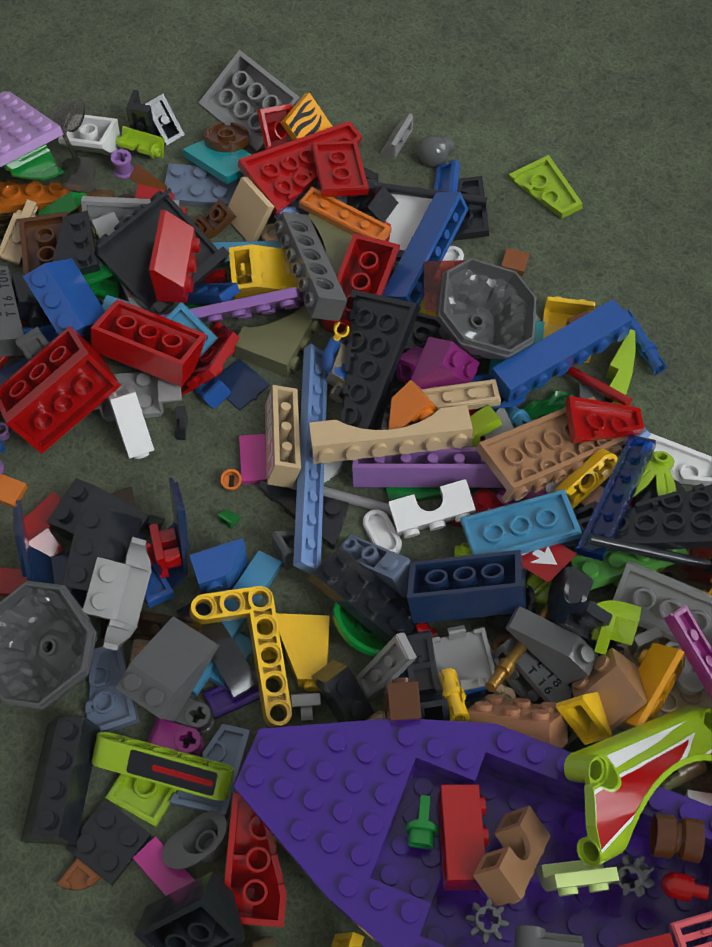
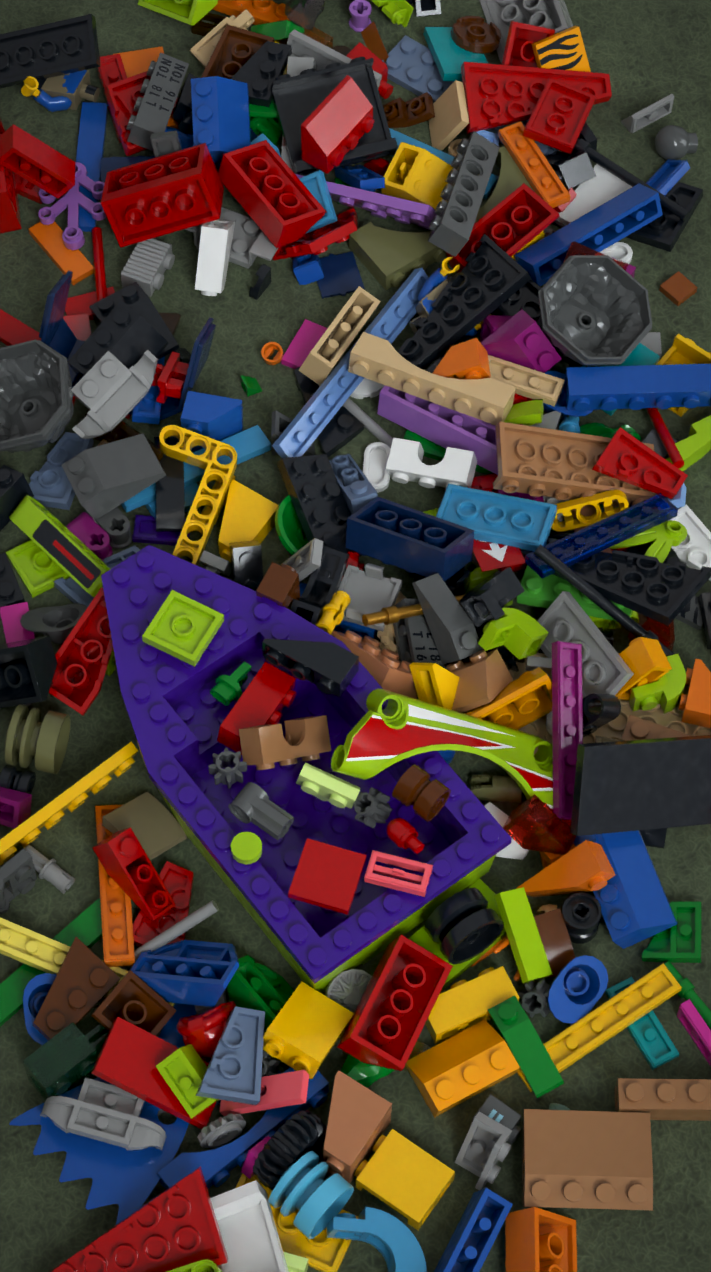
camera: 30 degrees right, 0 degrees up
(29, 478) = (99, 265): none -> red bar
(73, 458) = (148, 265): none -> light grey brick
(351, 799) = (183, 628): none -> lime plate
(501, 760) = (319, 662): none -> black slope

